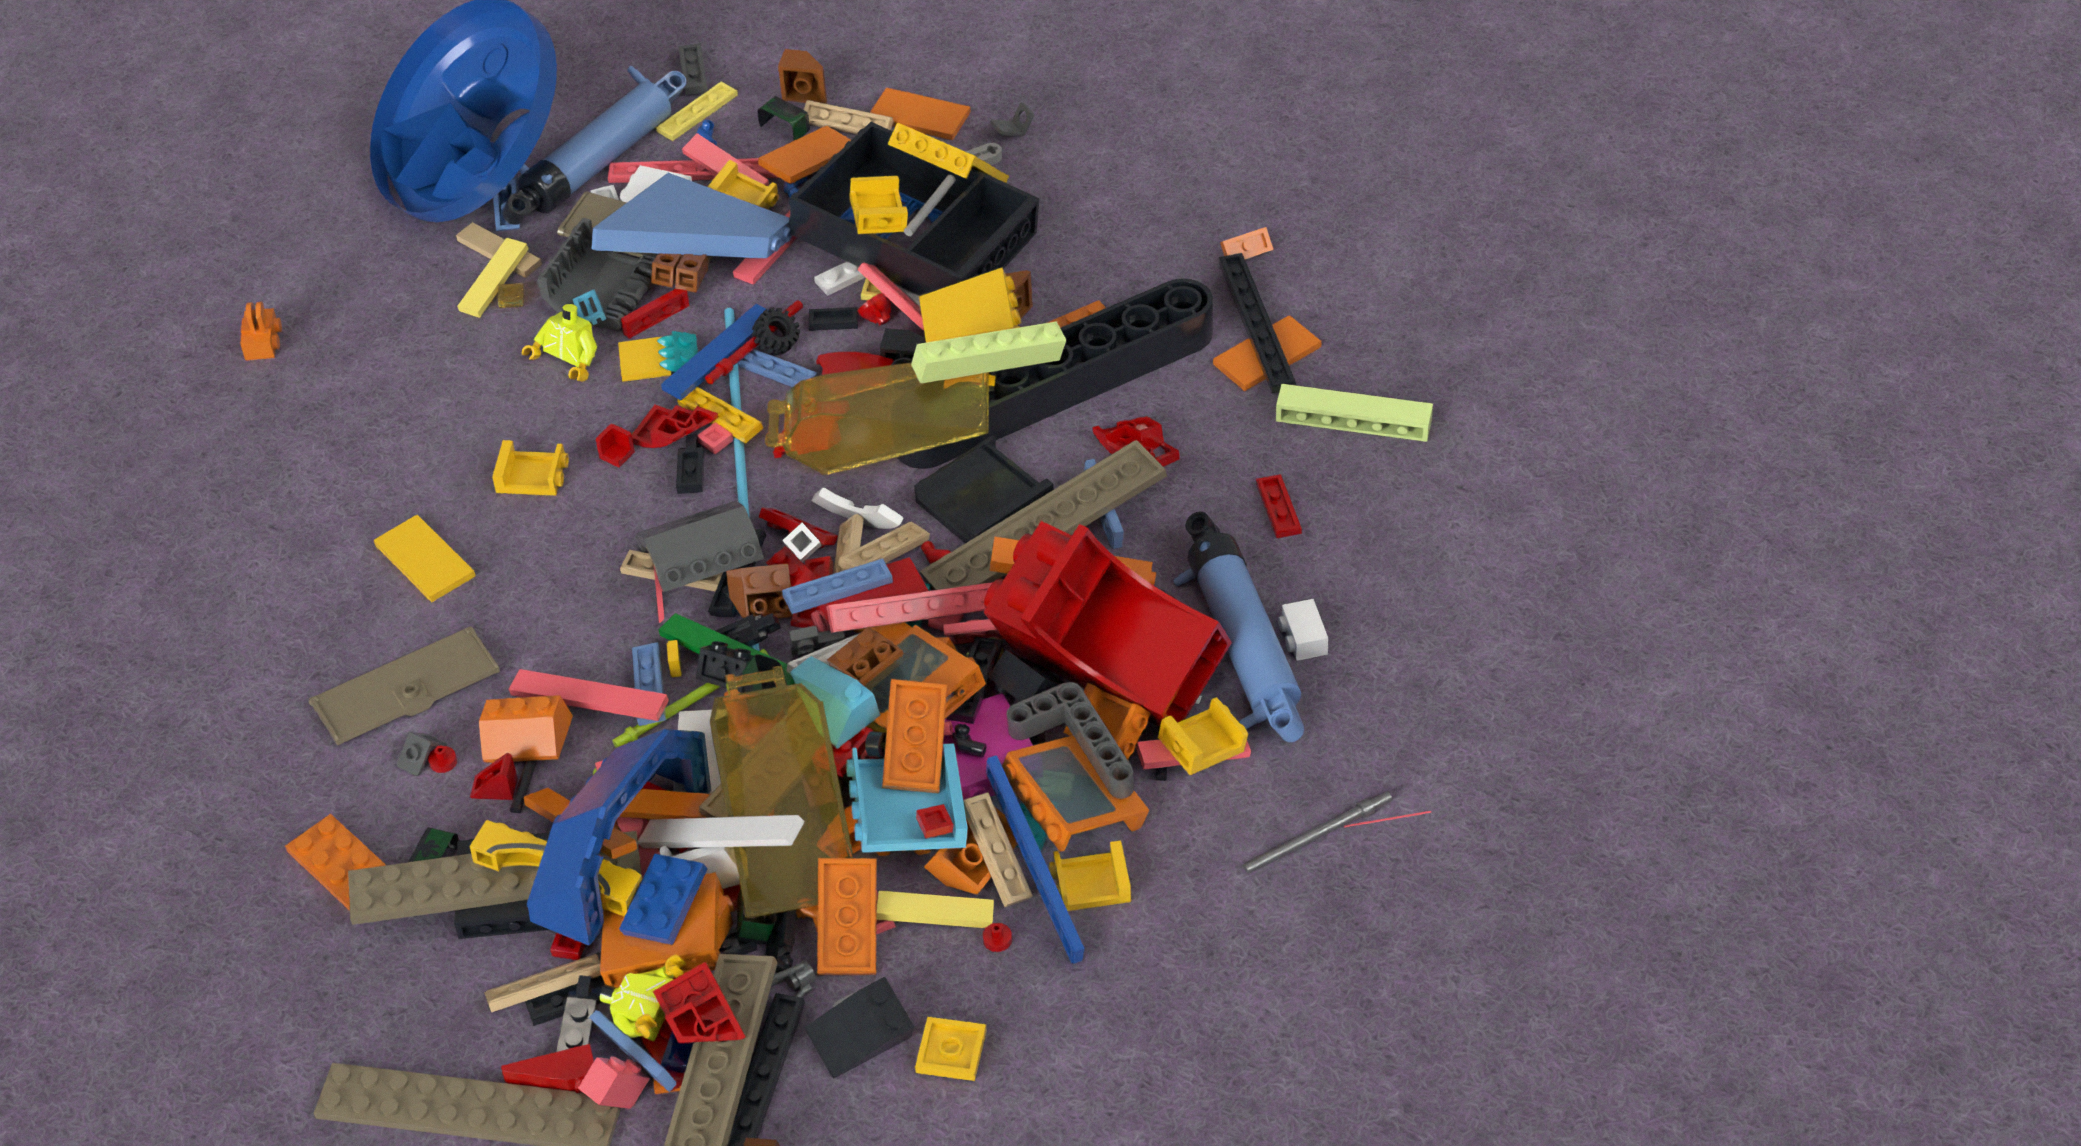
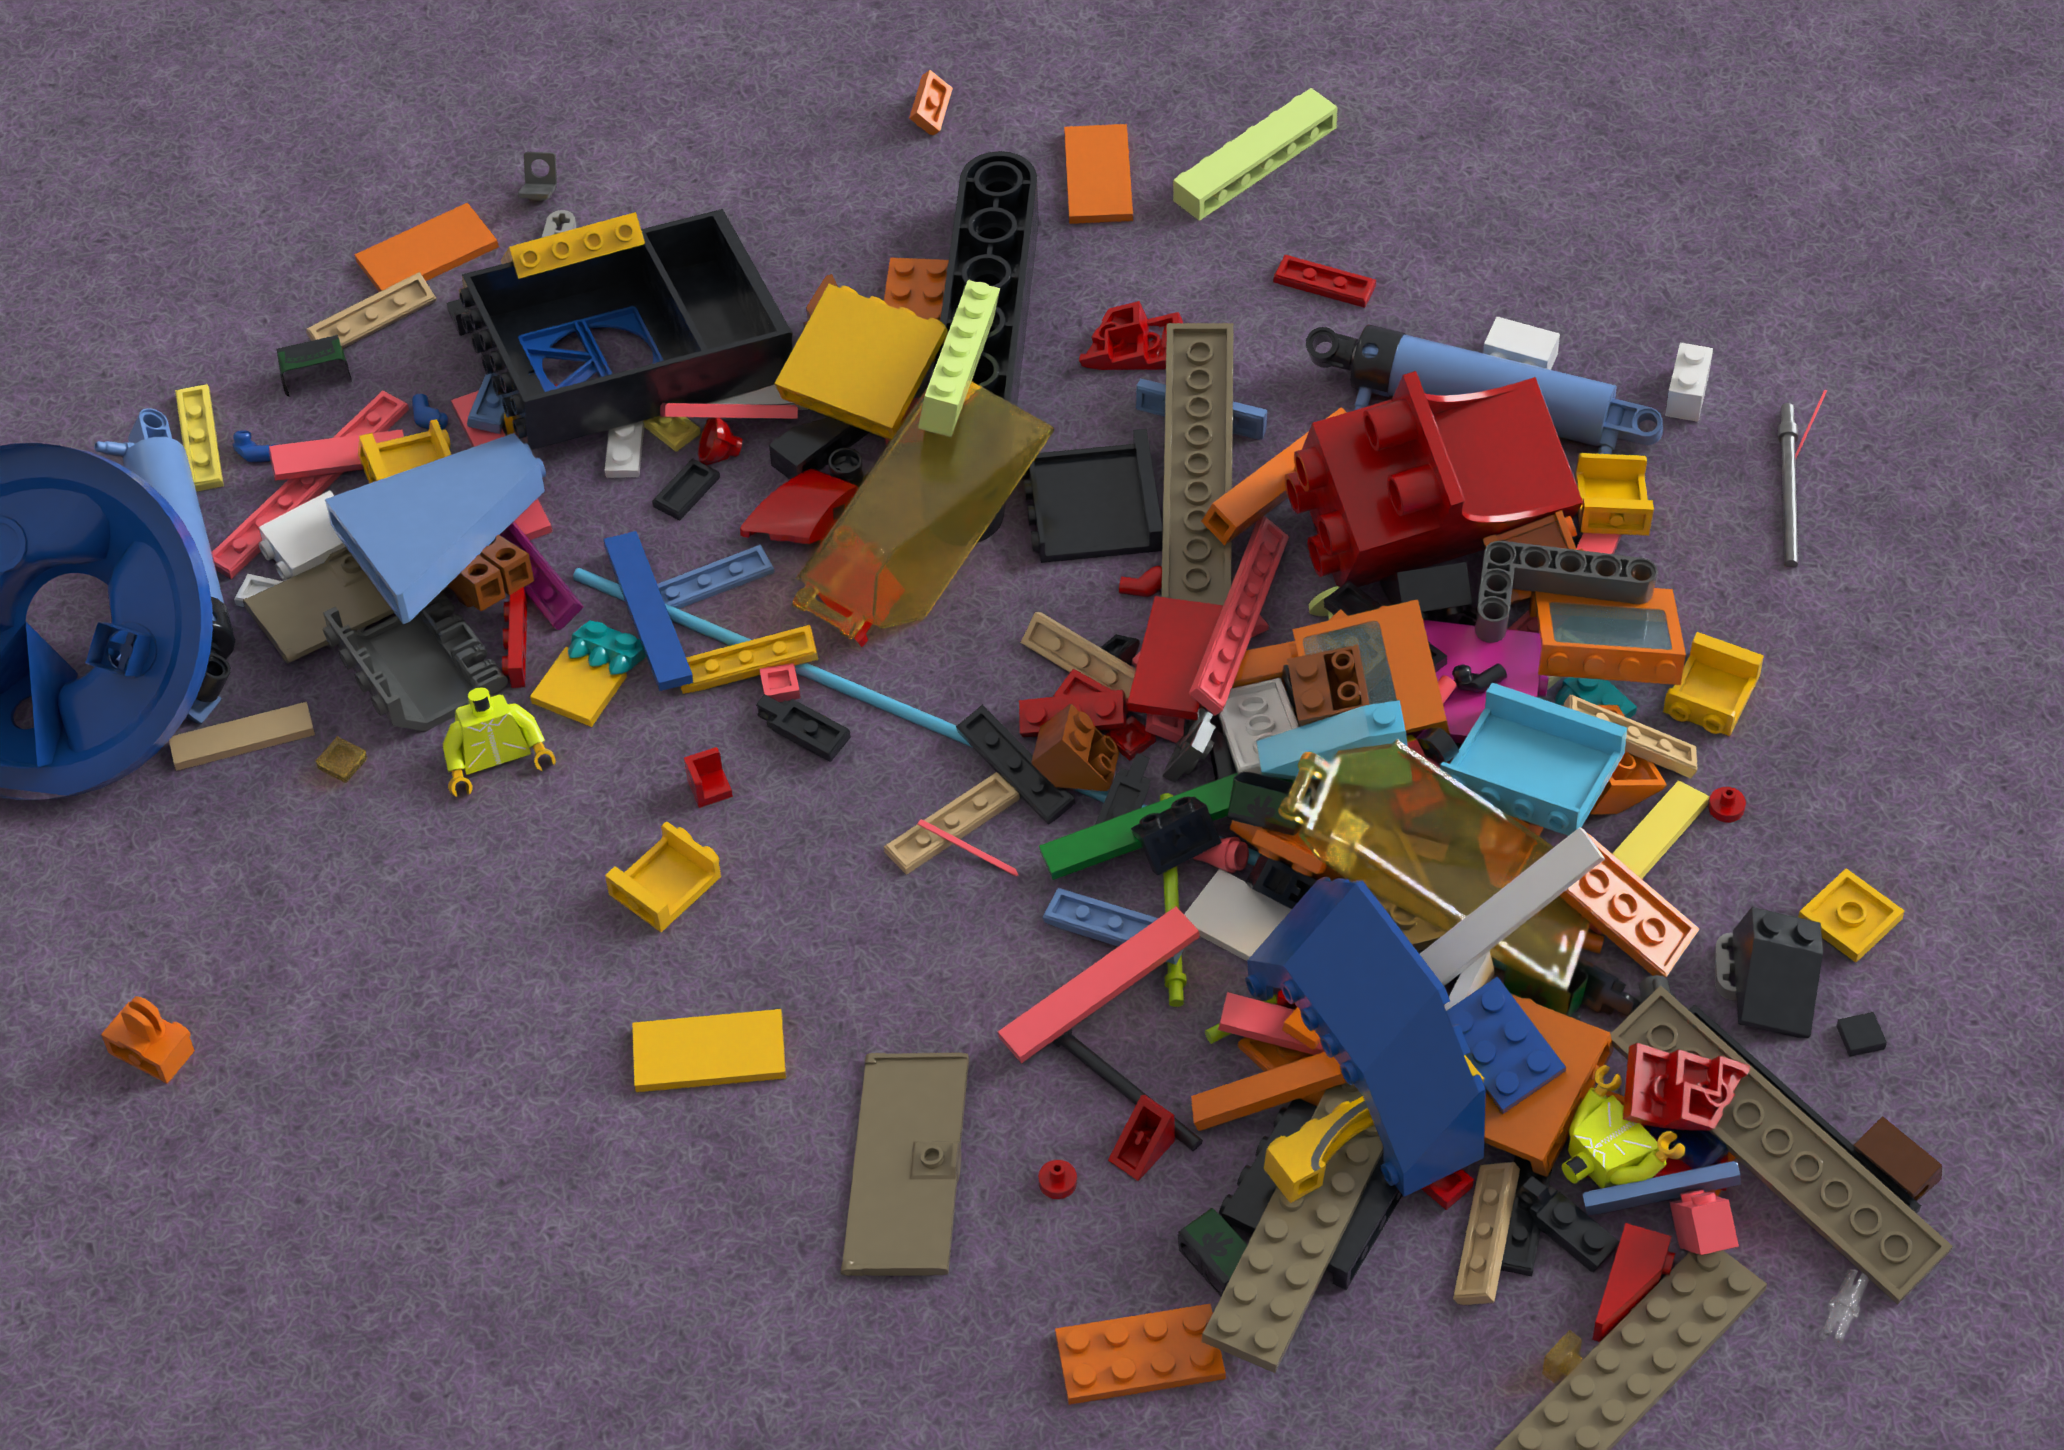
camera: 55 degrees left, 5 degrees up
(416, 752) = (1031, 1197): dark grey bracket -> none
(472, 1066) = (1562, 1357): none -> clear yellow plate
(492, 276) = (293, 761): light yellow tile -> none
(524, 728) = (1098, 1071): orange slope -> none
(592, 315) = (449, 679): medium azure tile -> none
(666, 426) = (726, 710): red slope -> none
(674, 658) = (1100, 884): yellow tile -> none
(693, 68) = (118, 400): dark grey plate -> none
(701, 545) = (953, 761): dark grey hinge -> none
(709, 293) = (548, 589): none -> magenta tile
(725, 366) = (678, 612): red bar -> none
(779, 519) = (994, 678): red plate -> none
(783, 323) = (670, 542): black tyre -> none
(801, 77) = (272, 310): dark orange slope -> none
(802, 542) = (1043, 677): white brick -> none
(804, 154) = (397, 374): orange tile -> none
(837, 586) = (1149, 676): medium blue tile -> none
(855, 1104) = (1861, 1034): none -> black tile
(874, 516) = (1047, 602): white tile -> none
(877, 205) = (617, 337): yellow panel -> none
(887, 546) = (1106, 618): tan tile -> none
(914, 736) = (1463, 706): orange tile -> none
(929, 205) = (652, 296): light grey bar -> none
(934, 821) = (1592, 751): red plate -> none
(967, 631) = (1307, 599): coral plate -> none
(1034, 860) = (1673, 710): blue tile -> none
(1256, 322) = (1055, 154): black tile -> none
(1355, 729) = (1689, 382): none -> white brick

